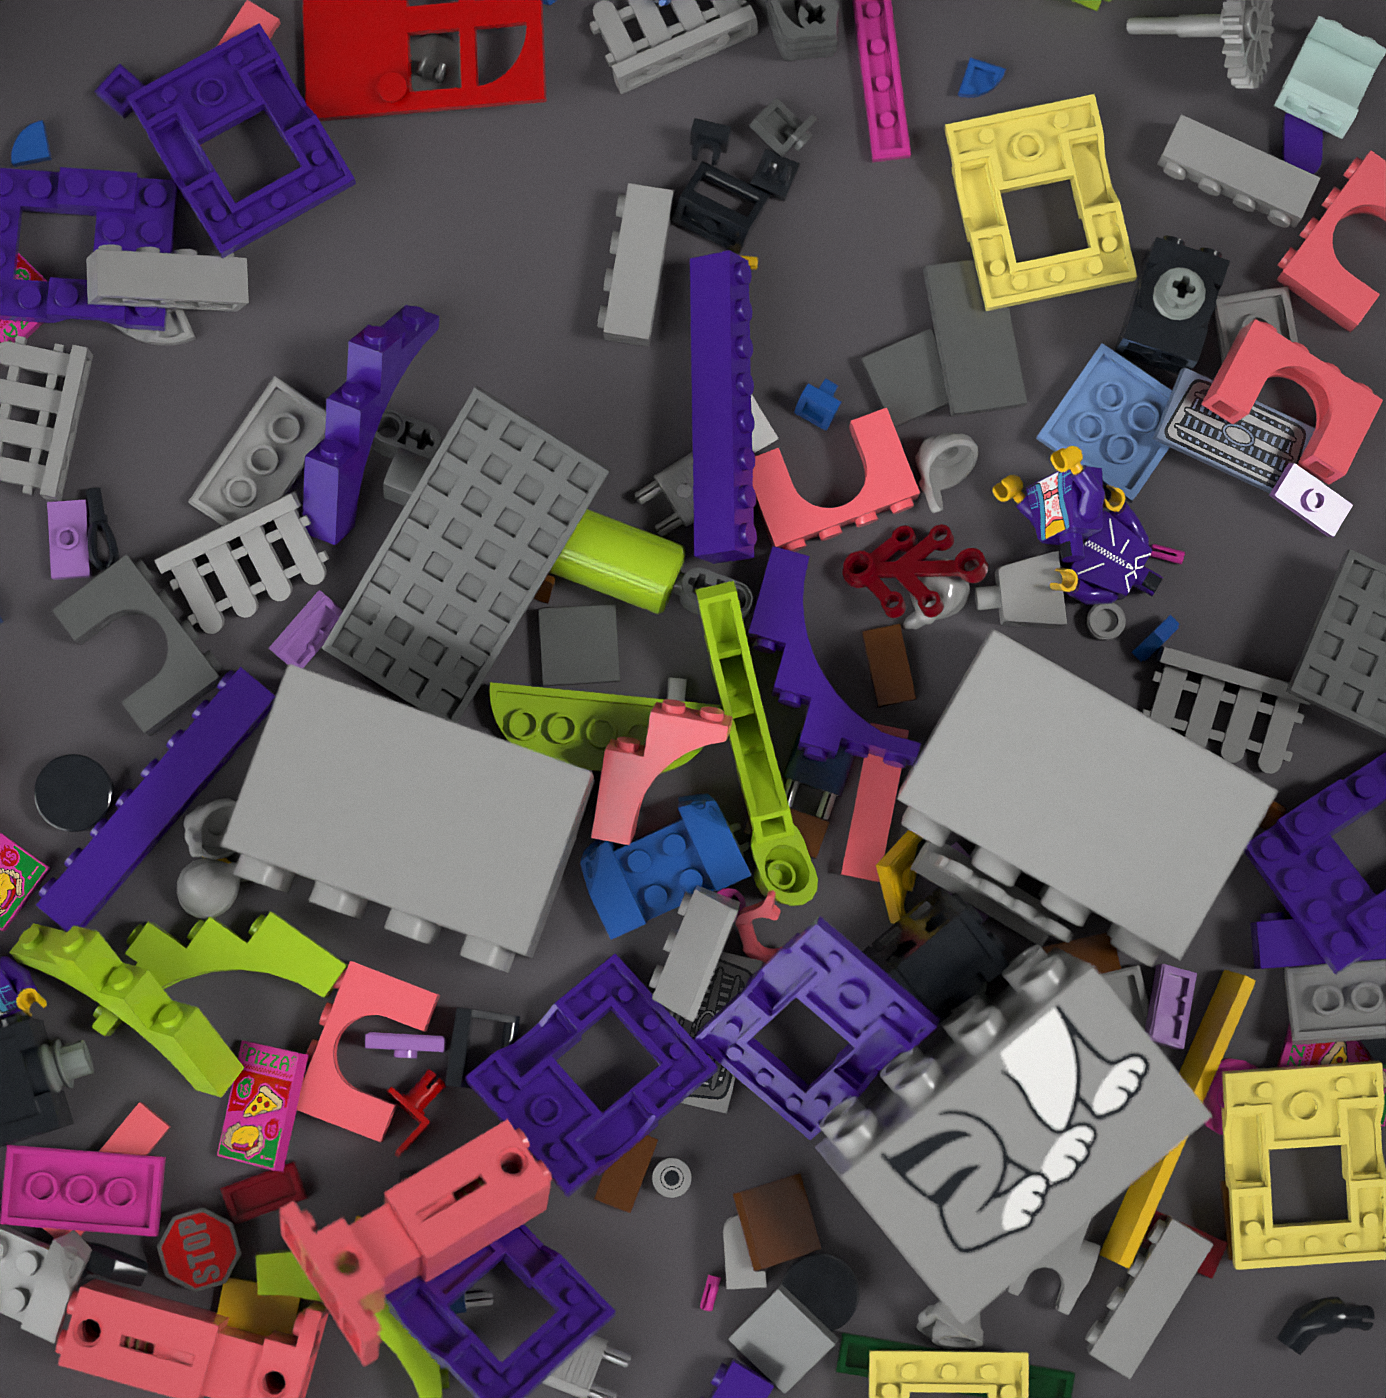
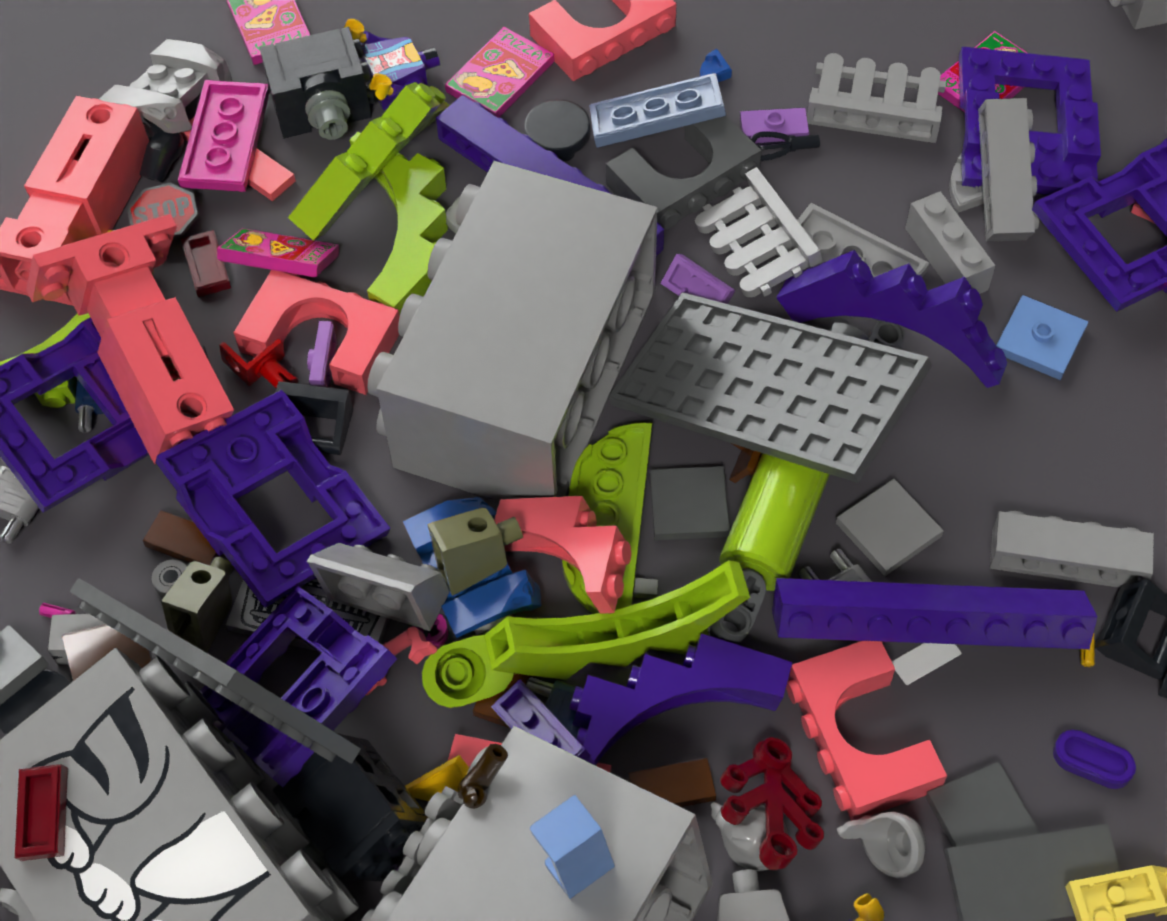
camera: 95 degrees right, 25 degrees down
(31, 146) = (1113, 96): blue tile -> none
(60, 674) = (656, 110): none -> sand blue tile
(257, 352) = (948, 242): none -> light grey brick
(372, 265) = (1041, 337): none -> medium blue plate
(612, 437) = (889, 527): none -> light grey tile
(673, 871) = (471, 546): none -> olive torso
(721, 1142) = (199, 602): none -> olive torso
(818, 404) = (945, 717): blue tile -> none
(842, 1093) = (214, 674): none -> dark grey plate
(851, 787) = (524, 710): none -> tile
(854, 269) = (1094, 759): none -> dark purple tile
(950, 822) = (480, 777): none -> dark brown arm
(997, 1225) = (41, 812): none -> dark red tile
(1039, 735) = (574, 846): none -> medium blue panel

